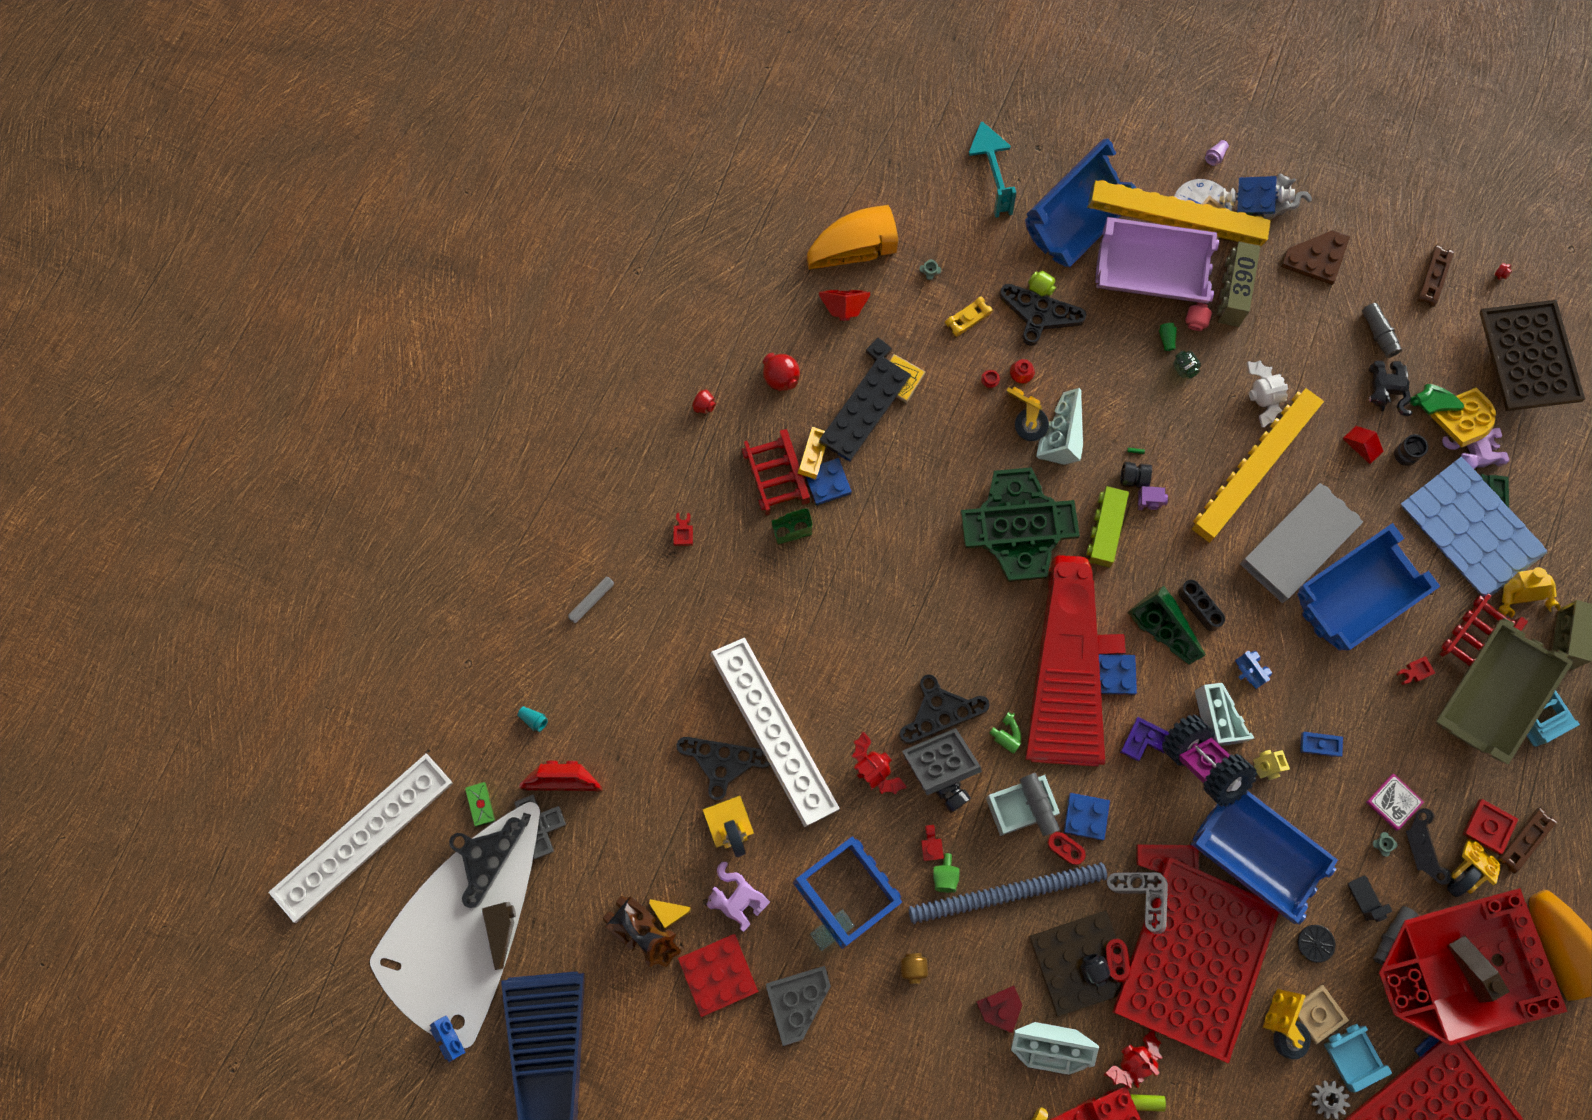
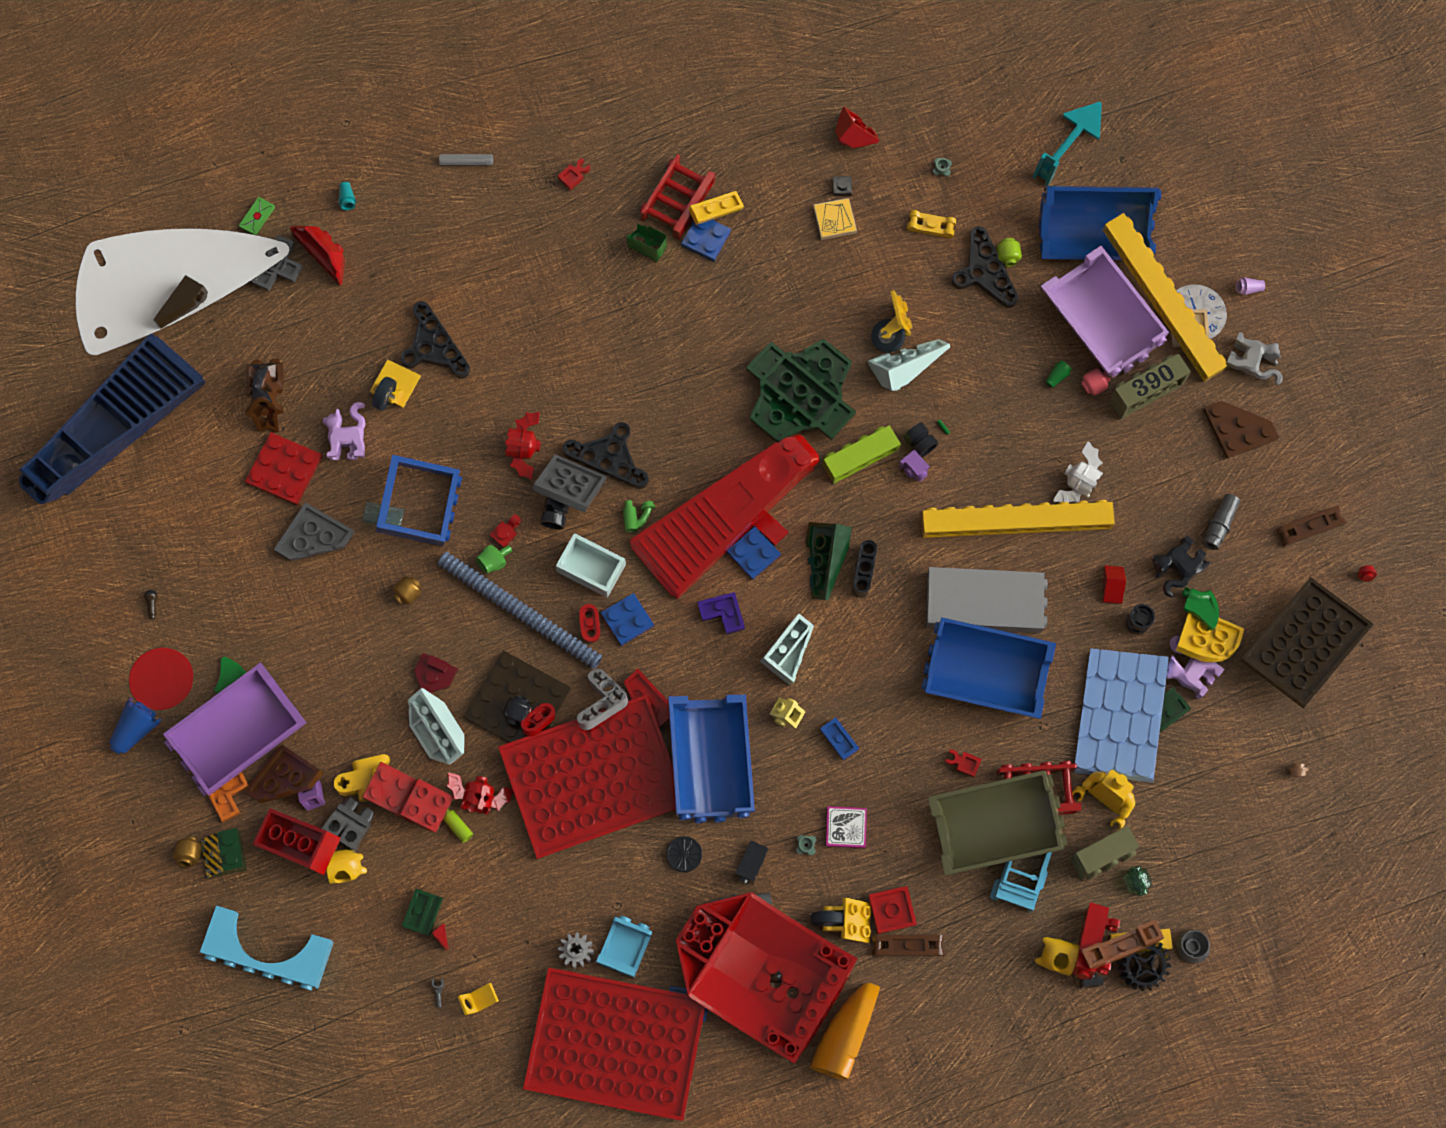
camera: 45 degrees right, 0 degrees up
(360, 838) = (165, 163): white plate -> none
(443, 1031) = (84, 335): blue hinge -> none
(479, 866) = (232, 246): black beam -> none
(668, 912) = (295, 400): yellow slope -> none
(704, 402) = (681, 104): red cone -> none
(774, 732) = (486, 357): white plate -> none
(780, 371) = (756, 133): red brick -> none
(855, 238) = (912, 95): light orange panel -> none
(864, 408) = (784, 212): black plate -> none
(990, 378) = (897, 279): red plate -> none
(1022, 371) = (925, 296): red cone -> none
(1039, 804) = (597, 569): dark grey piece -> none
(1187, 364) = (1047, 404): clear green head -> none
(1223, 775) = (737, 672): black plate -> none
(1252, 670) = (847, 642): blue hips -> none
(1257, 195) = (1238, 340): blue plate -> none
(1290, 1036) = (595, 886): yellow plate -> none
(1321, 1014) = (633, 897): tan tile -> none
(1423, 847) = (829, 872): black plate -> none
(1478, 971) = (767, 977): dark brown slope -> none

